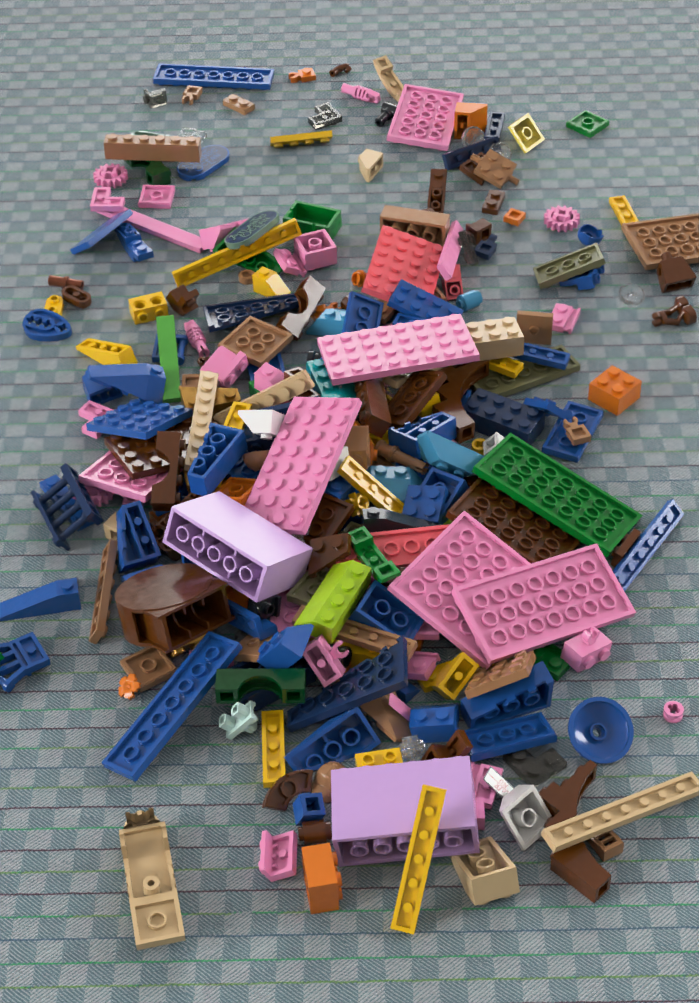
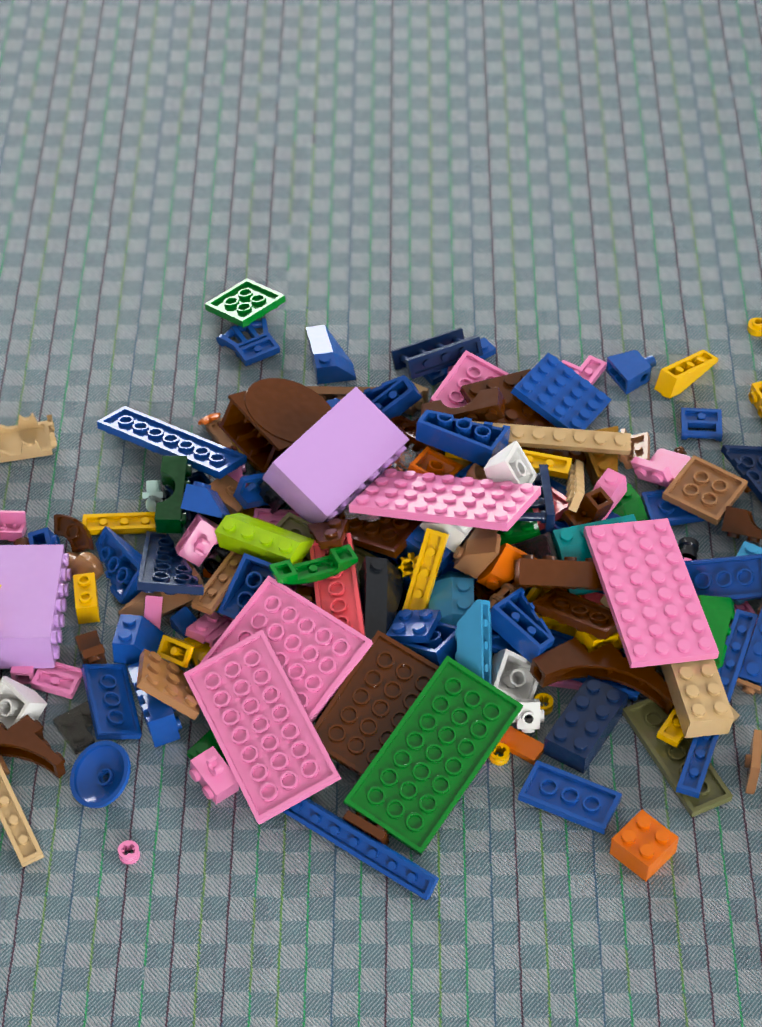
camera: 90 degrees right, 5 degrees up
(47, 317) = (735, 328): blue piece -> none
(138, 379) = (628, 391): blue wedge -> none
(169, 357) = (680, 418): bright green tile -> none
(196, 338) = (714, 445): bright pink hinge -> none
(412, 748) = (104, 623): clear gear -> none
(497, 782) = (51, 689): white sticker -> none
(548, 407) = (593, 755): blue plate -> none
(576, 433) = (552, 792): medium nougat plate -> none

